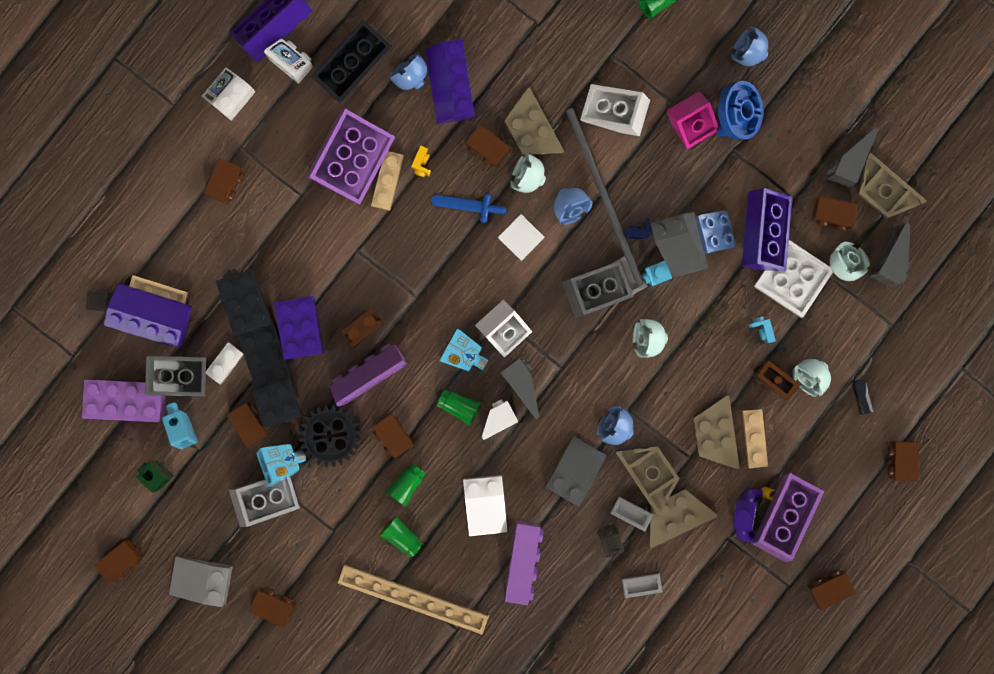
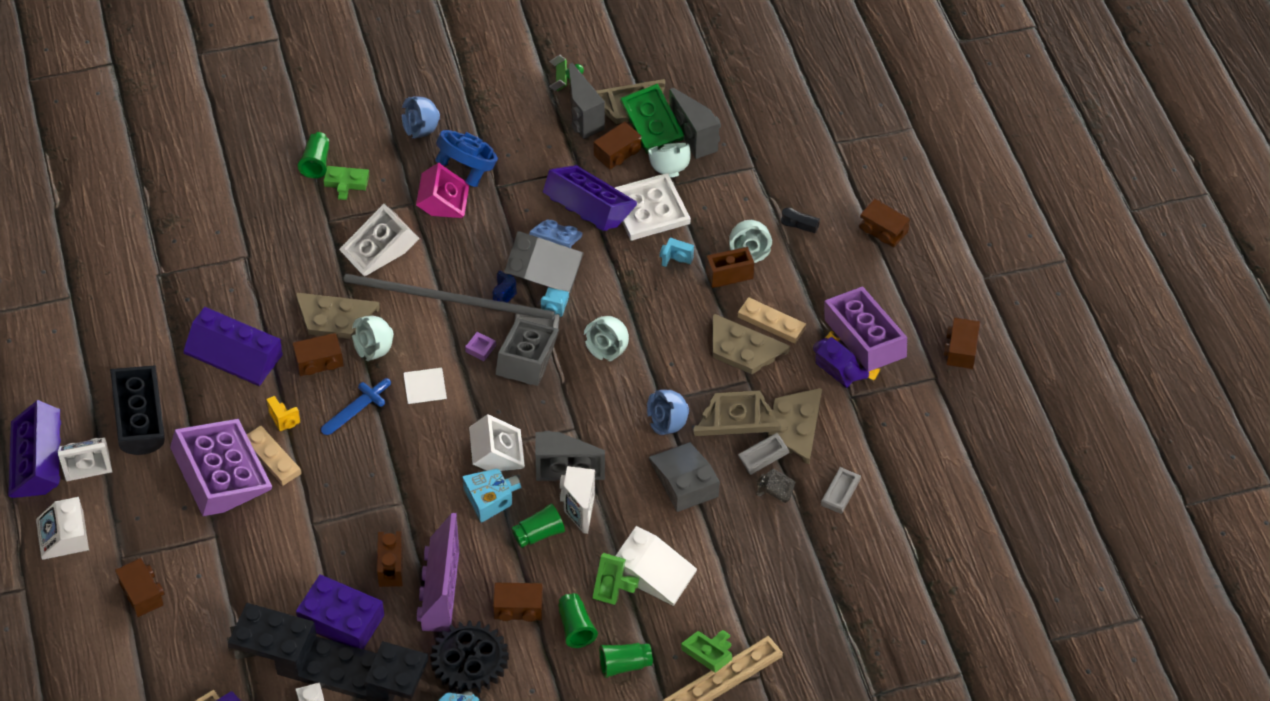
camera: 50 degrees left, 35 degrees down
(410, 73) = (194, 369): medium blue cylinder -> none
(446, 587) = (709, 652): none -> bright green plate
(451, 487) = (611, 579): none -> bright green plate
(522, 562) = (736, 563): medium lavender brick -> none
(571, 204) = (431, 321): medium blue cylinder -> none
(578, 252) = (480, 346): none -> medium lavender plate
(656, 37) = (346, 179): none -> bright green plate
(877, 221) = (652, 117): none -> green plate
(878, 118) = (562, 72): none -> piece

